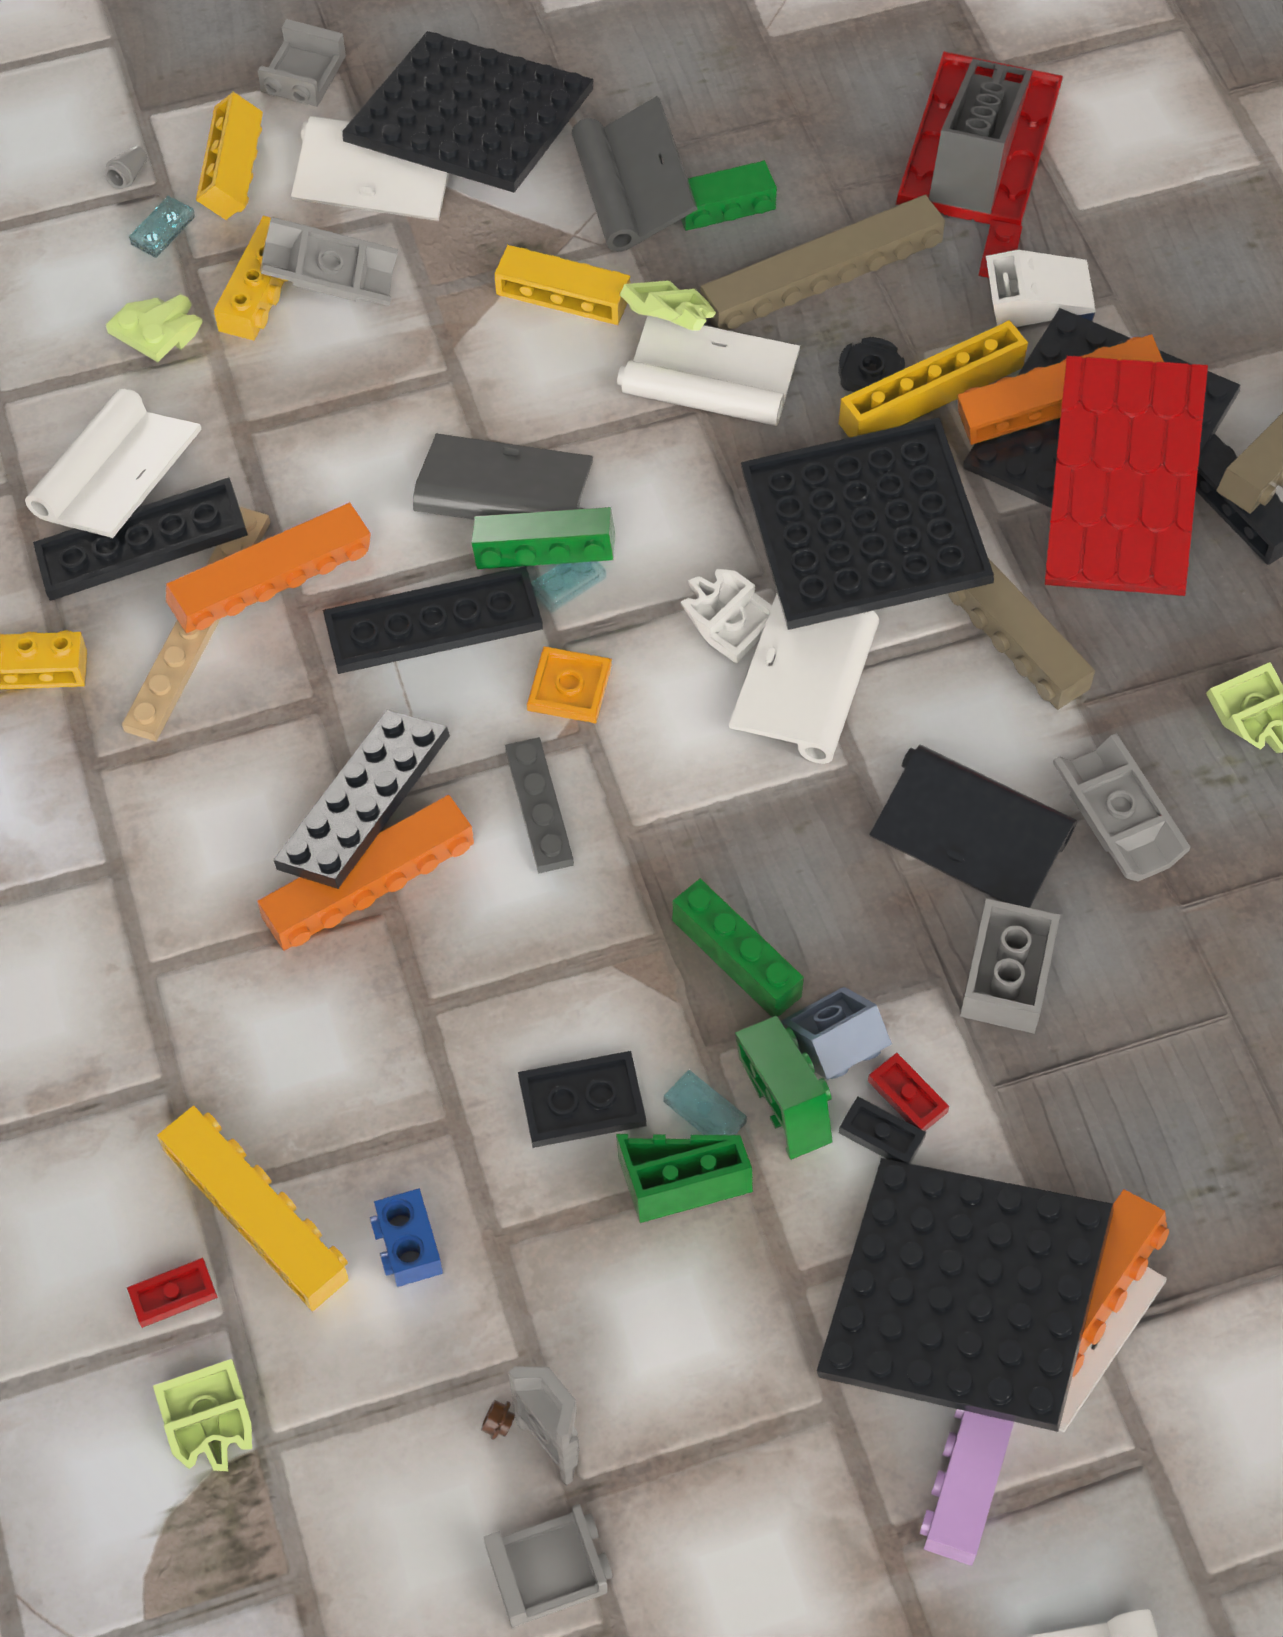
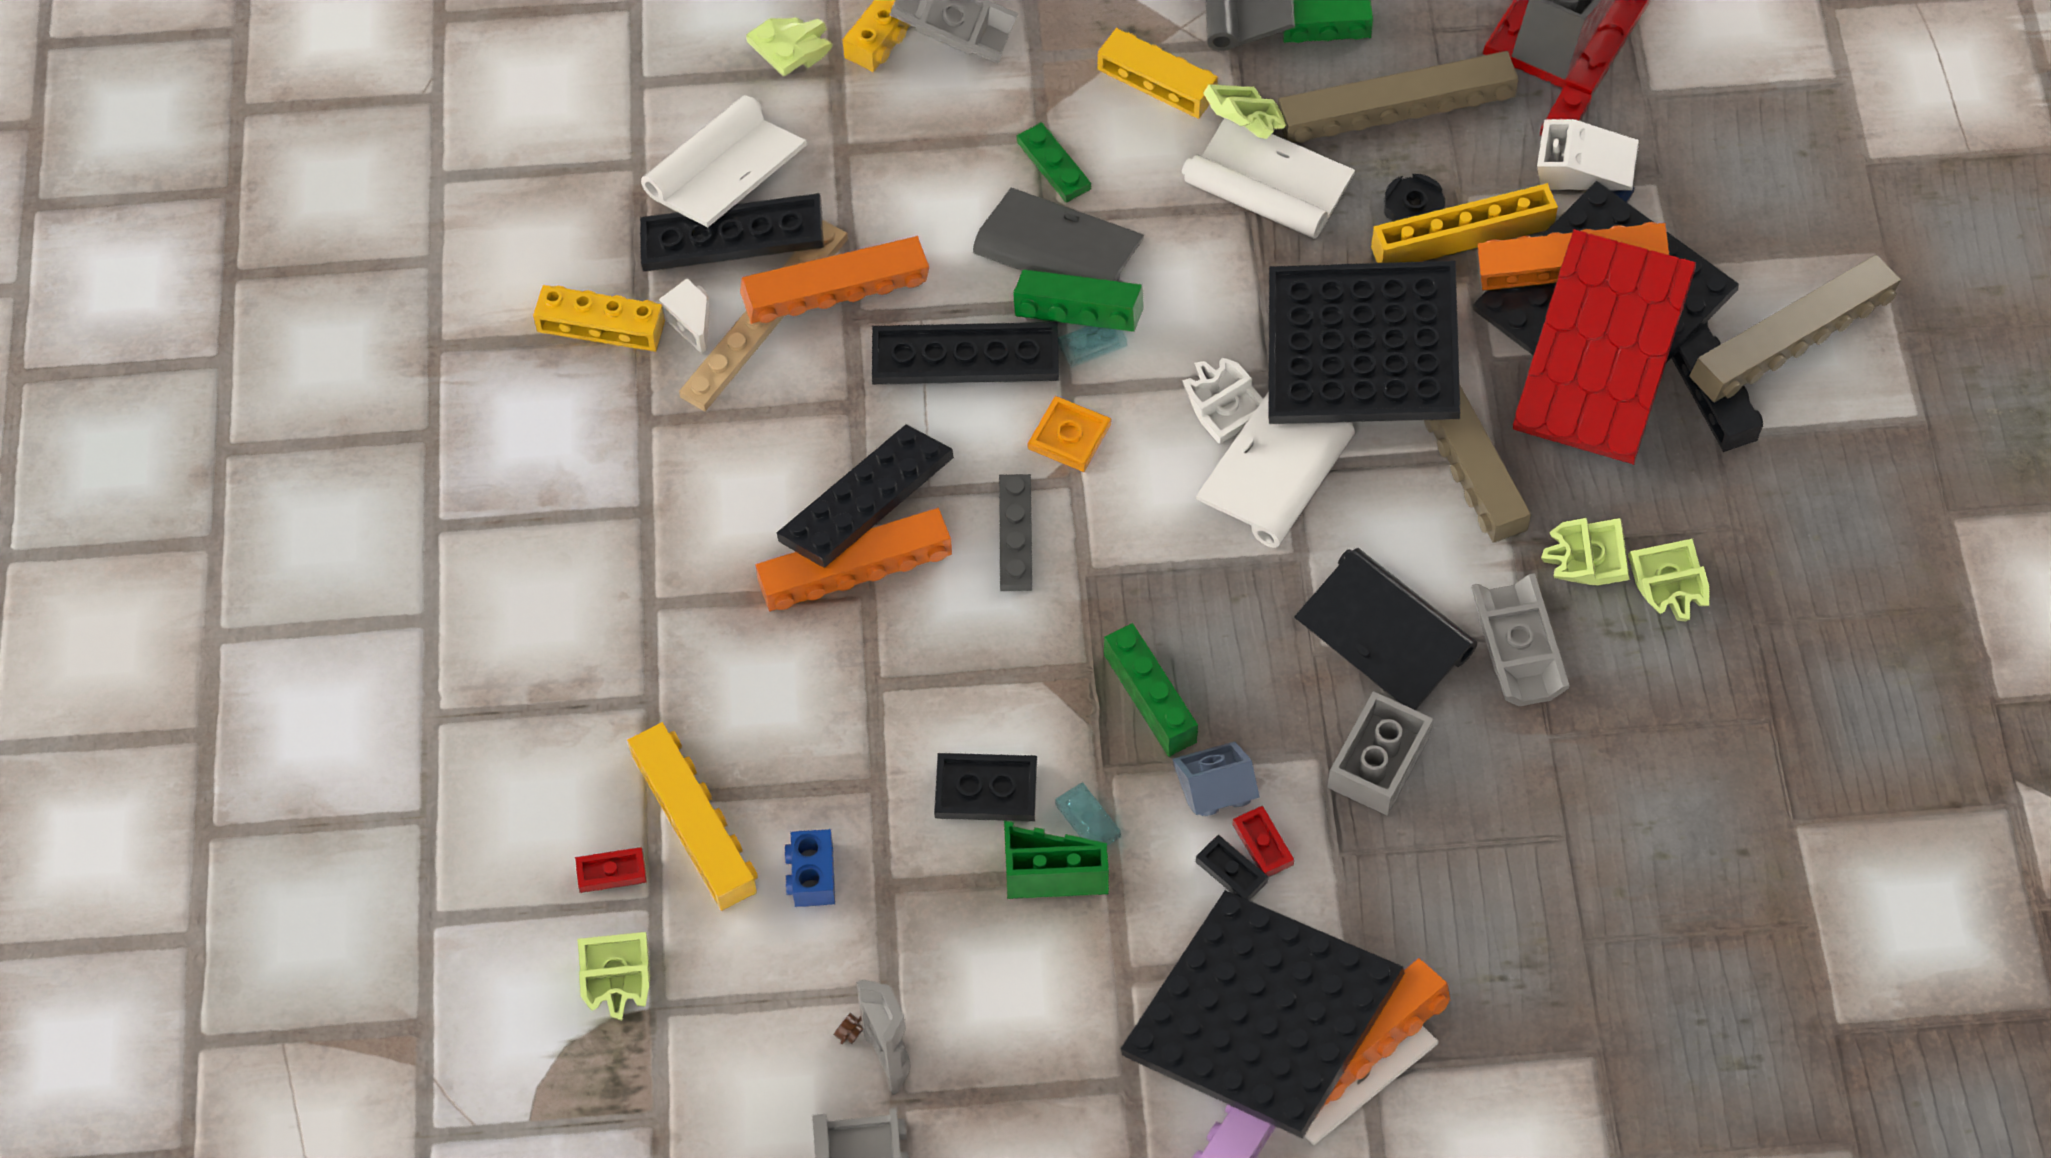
camera: 15 degrees right, 0 degrees up
(112, 636) = (688, 313): none -> white slope
(475, 398) = (1053, 162): none -> green plate
(787, 1084) = (1160, 812): green wedge -> none
(1165, 698) = (1589, 552): none -> yellowish green plate

